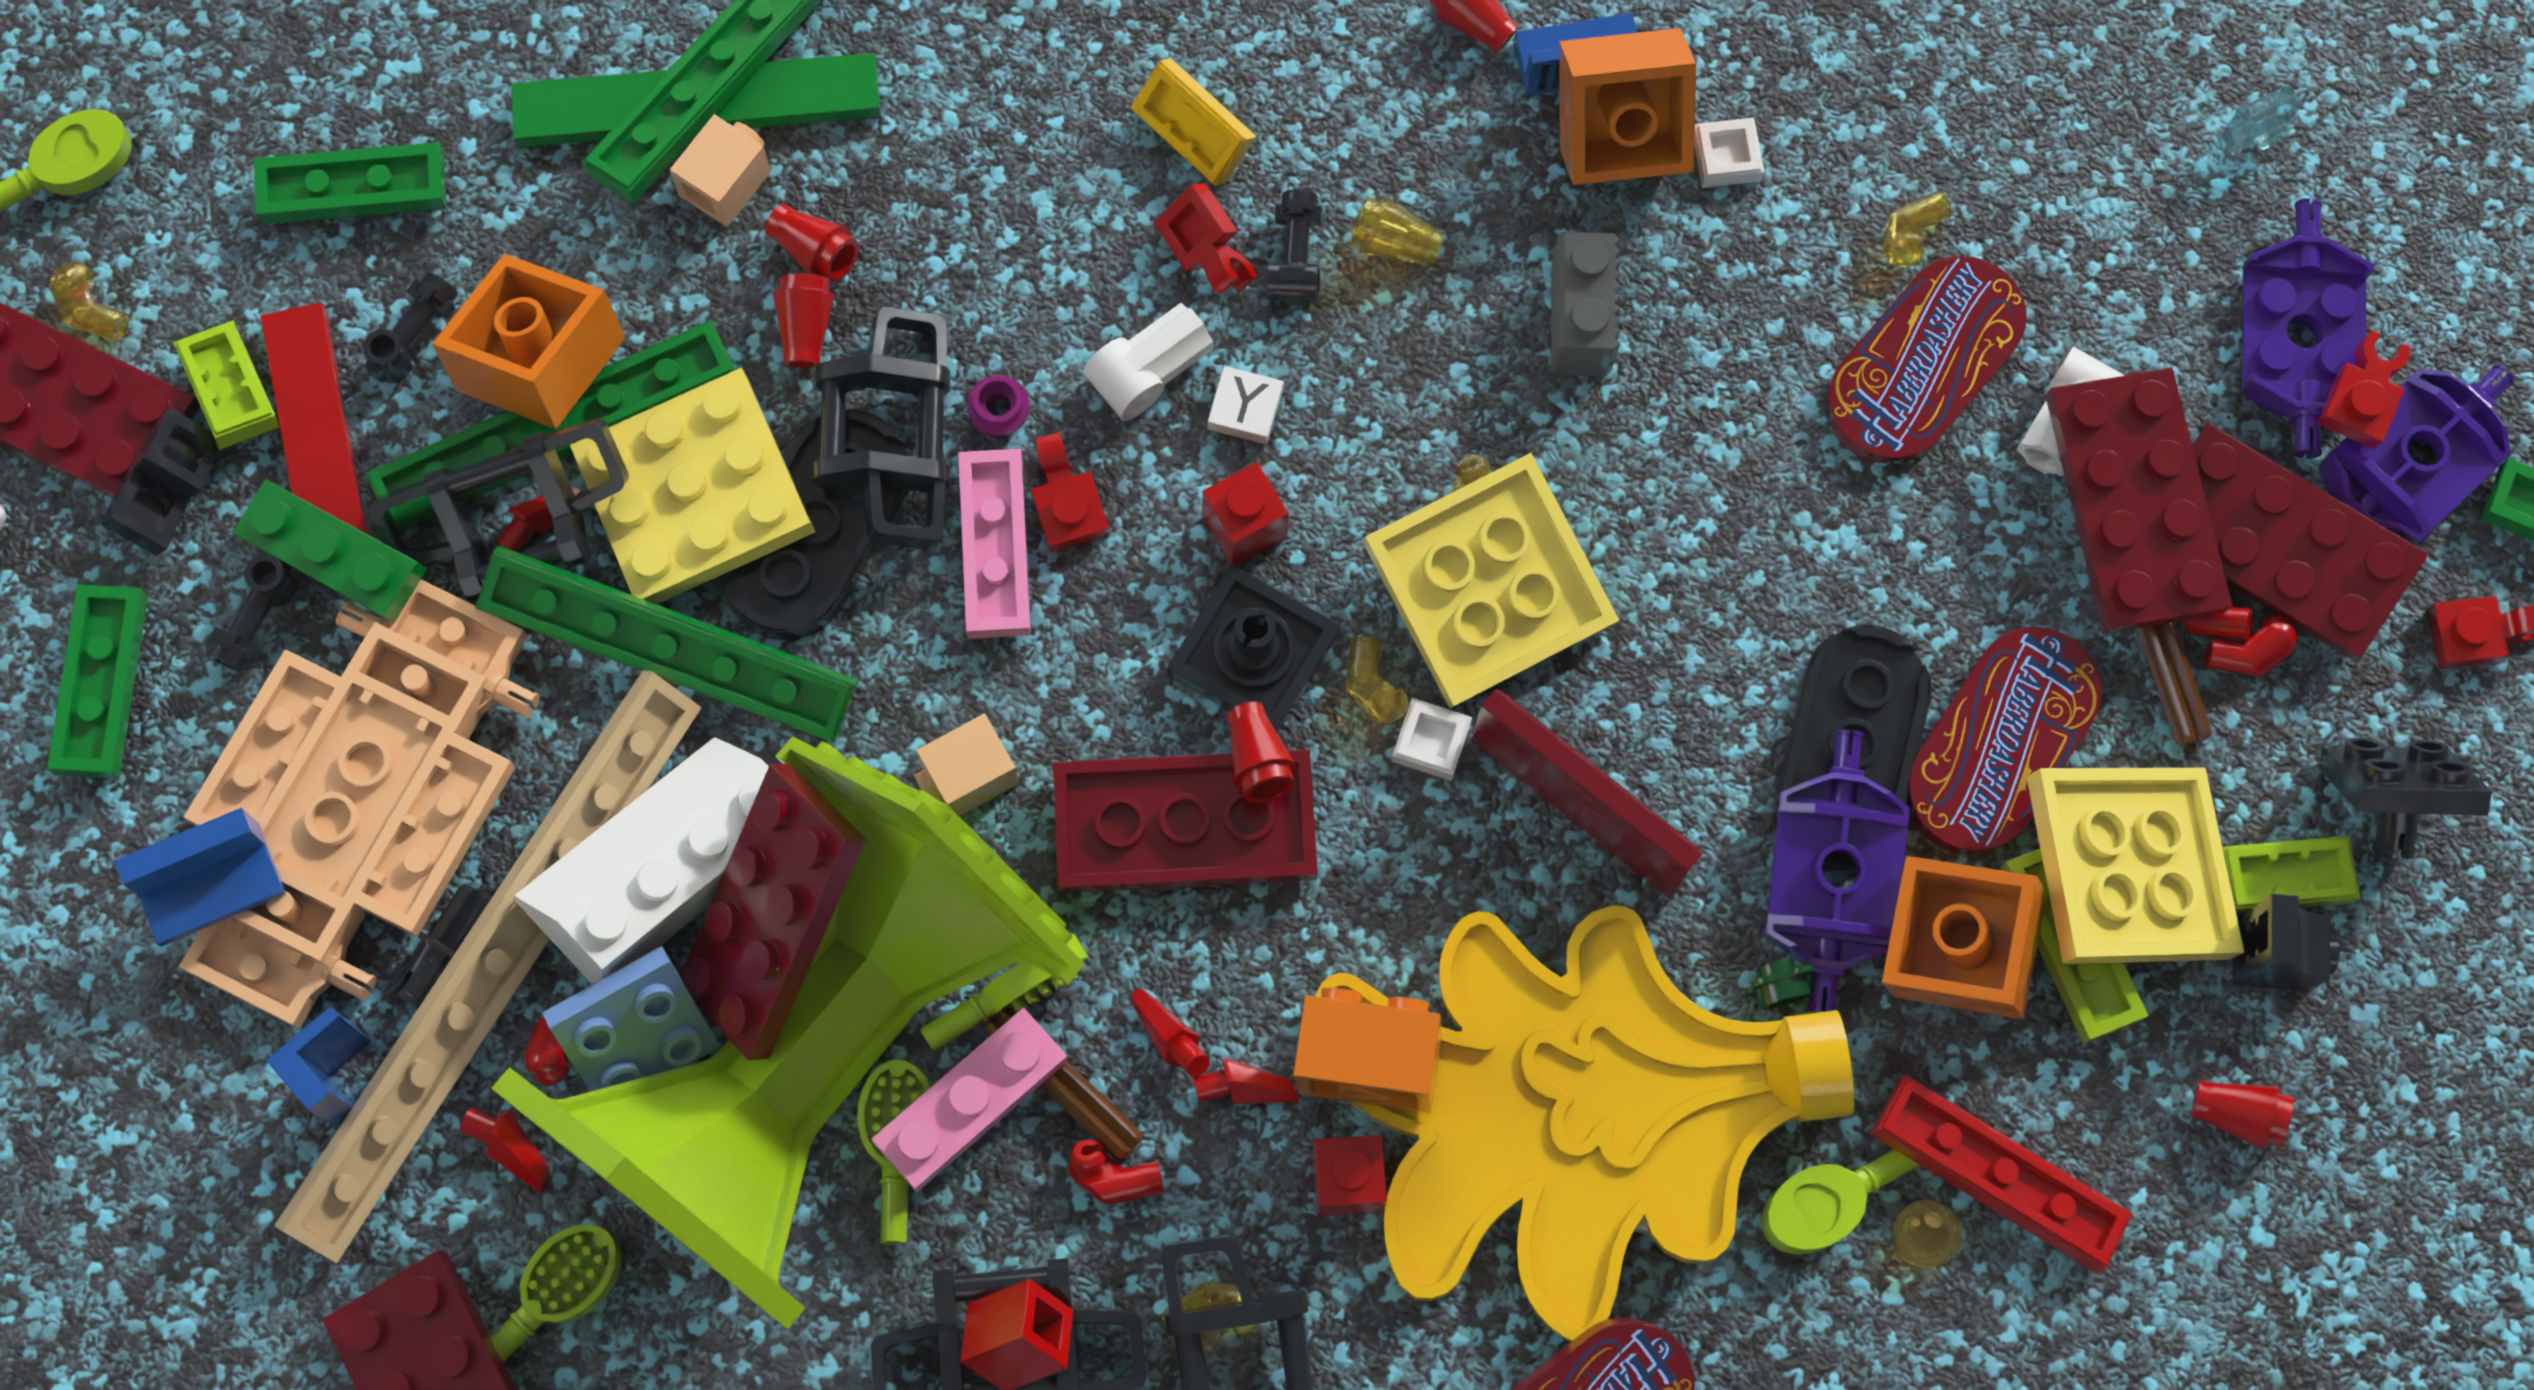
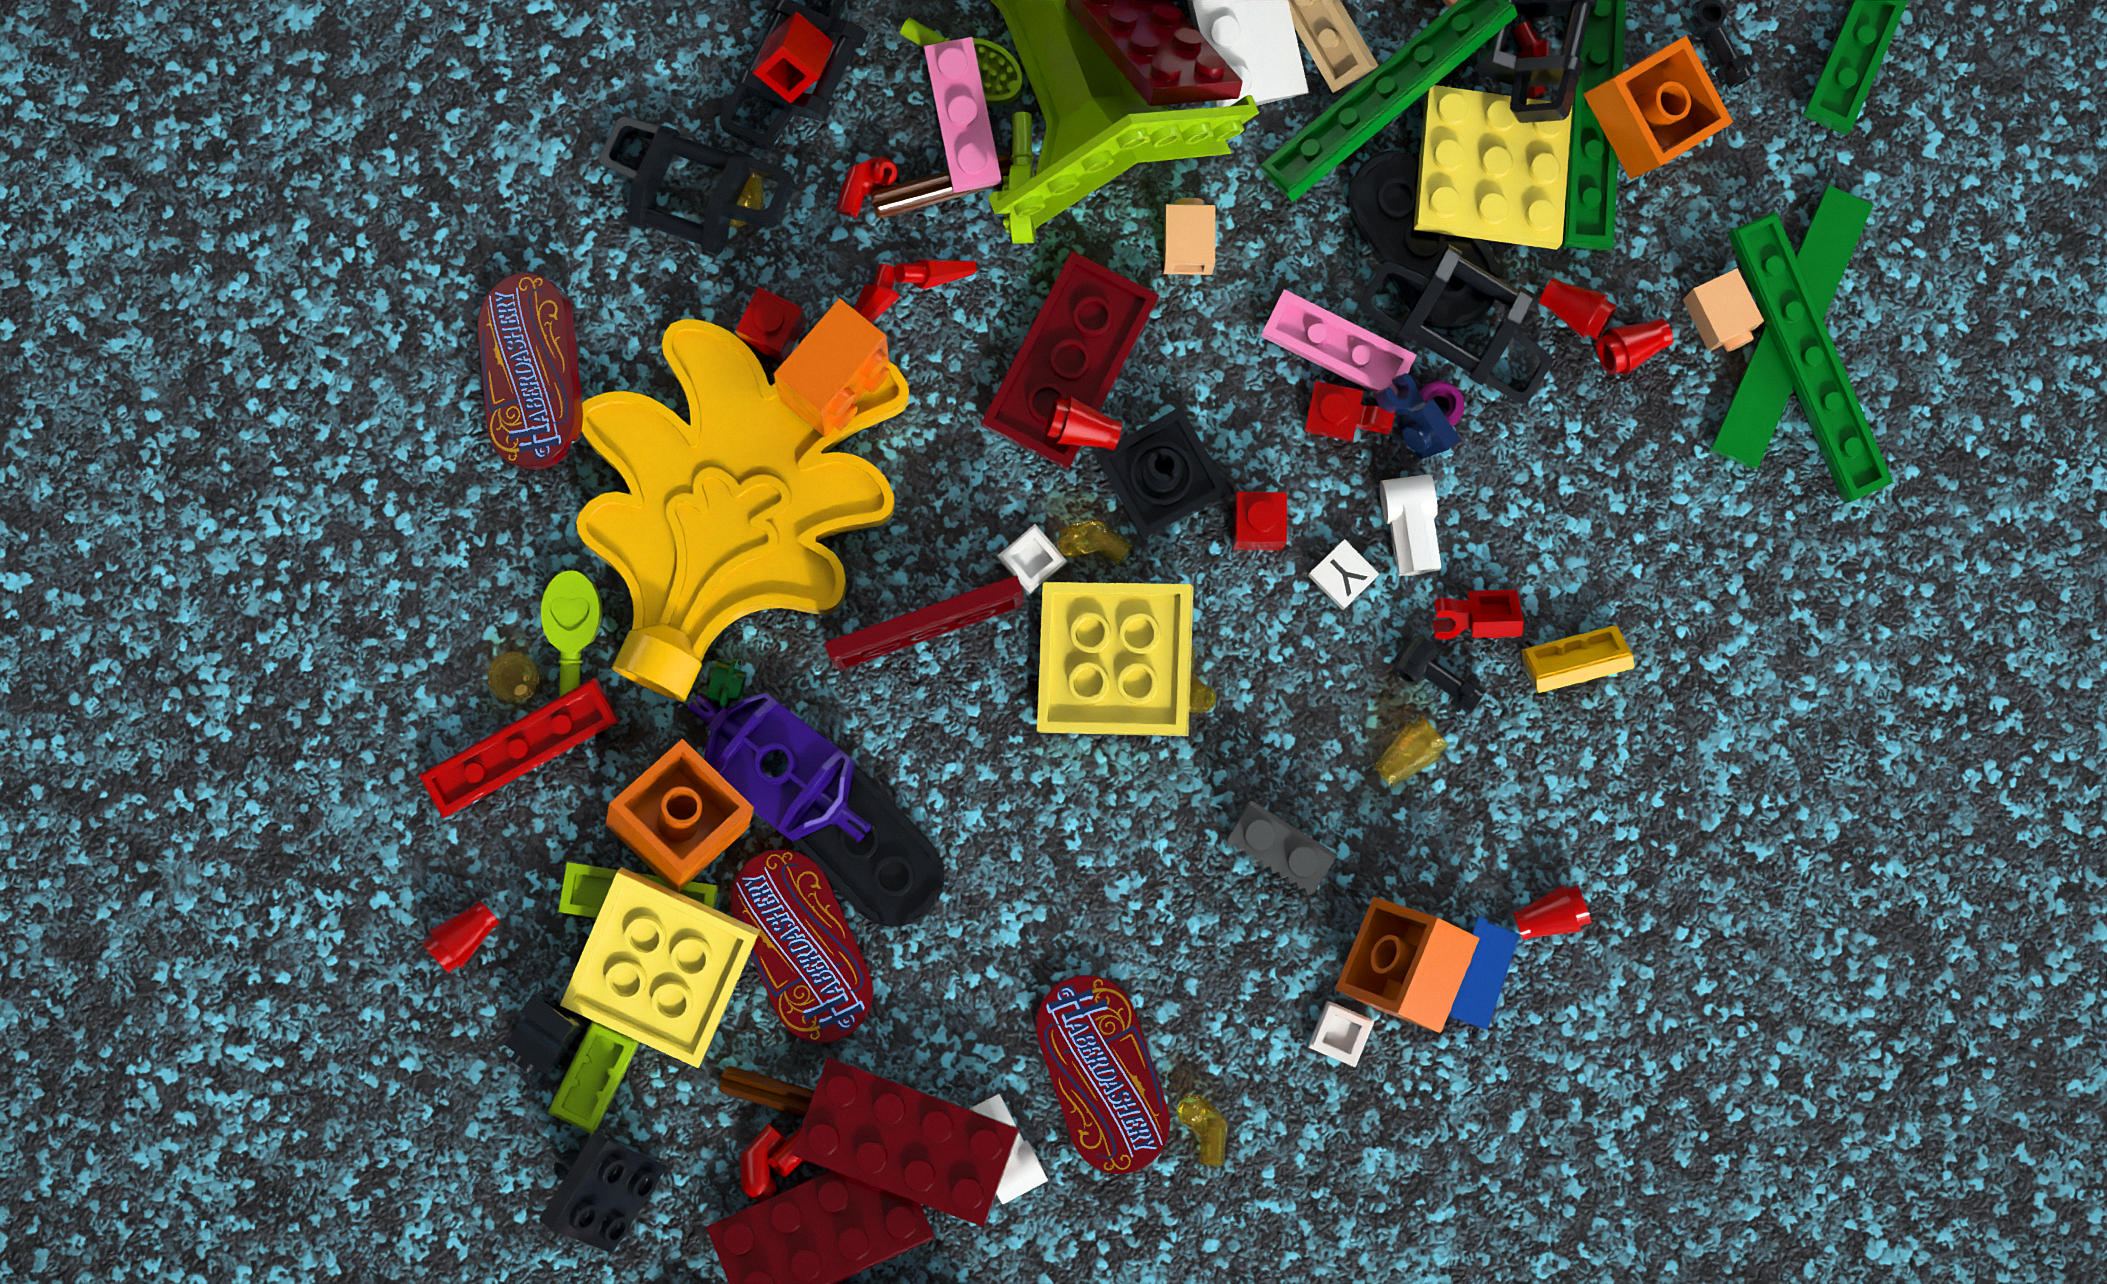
camera: 120 degrees right, 10 degrees up
(1034, 404) = (1420, 421): none -> dark blue plate

